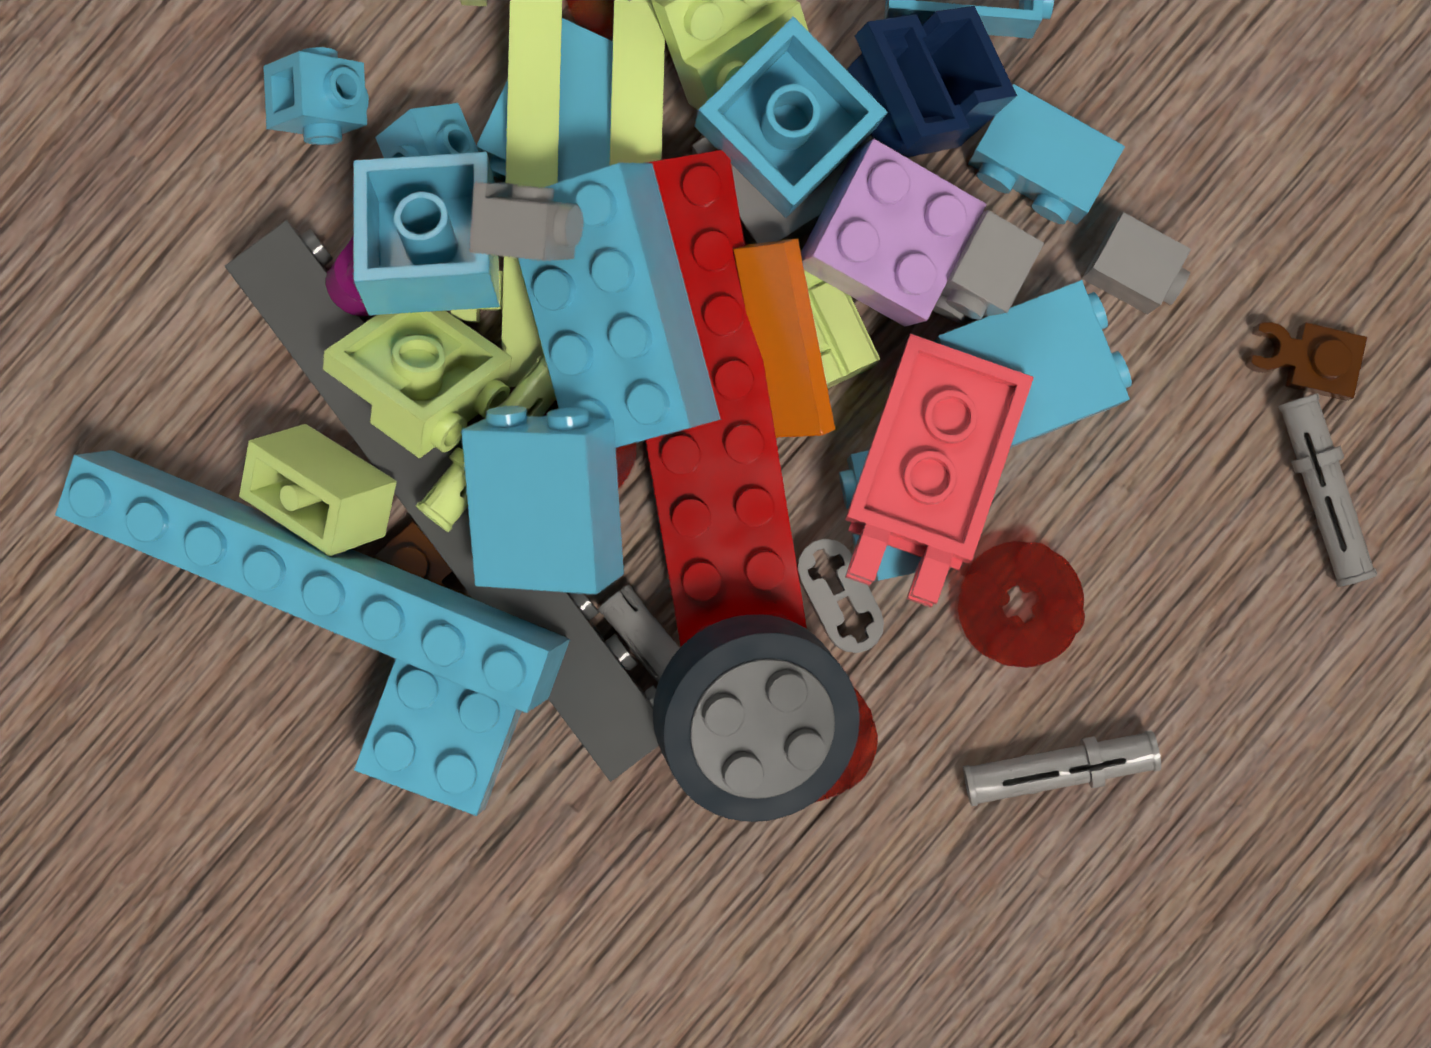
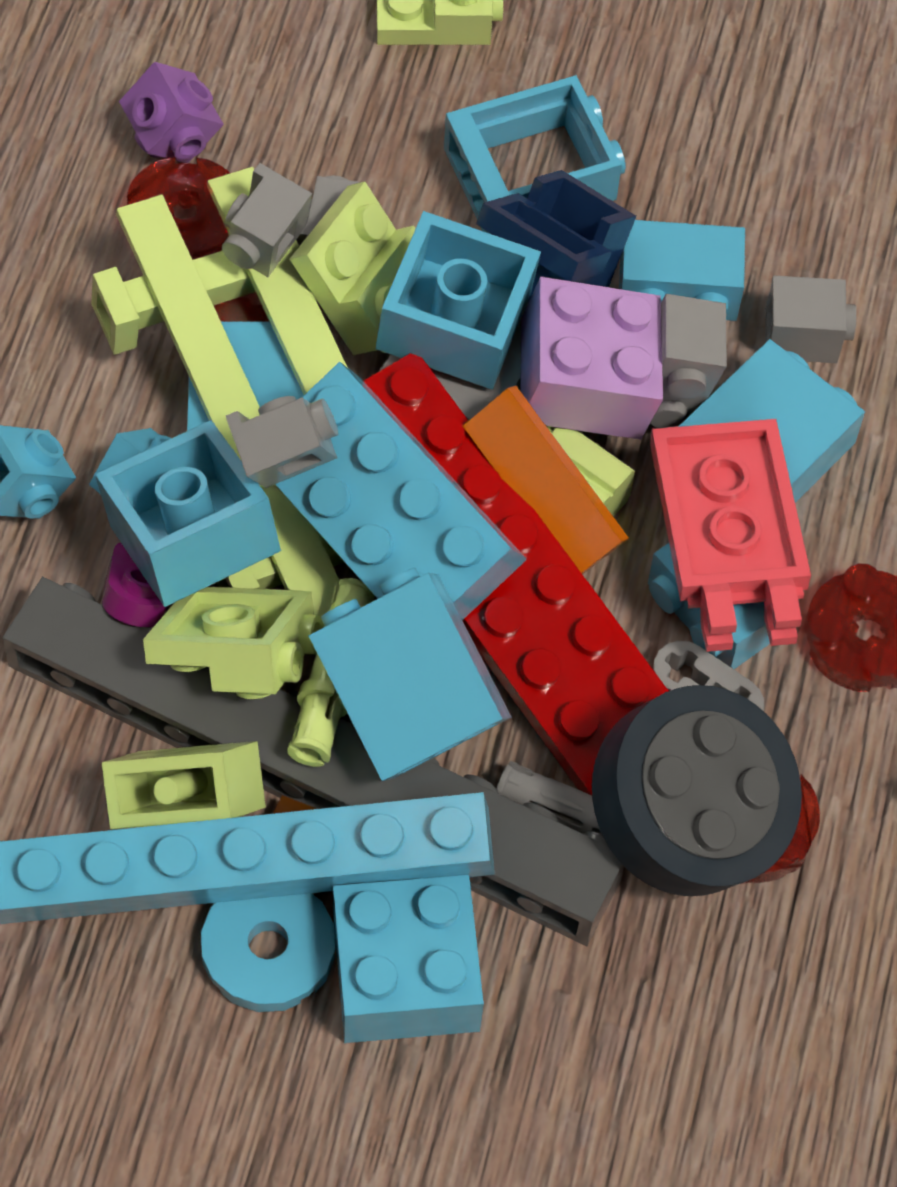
camera: 30 degrees left, 25 degrees down
(319, 685) = (275, 982): none -> medium azure tile

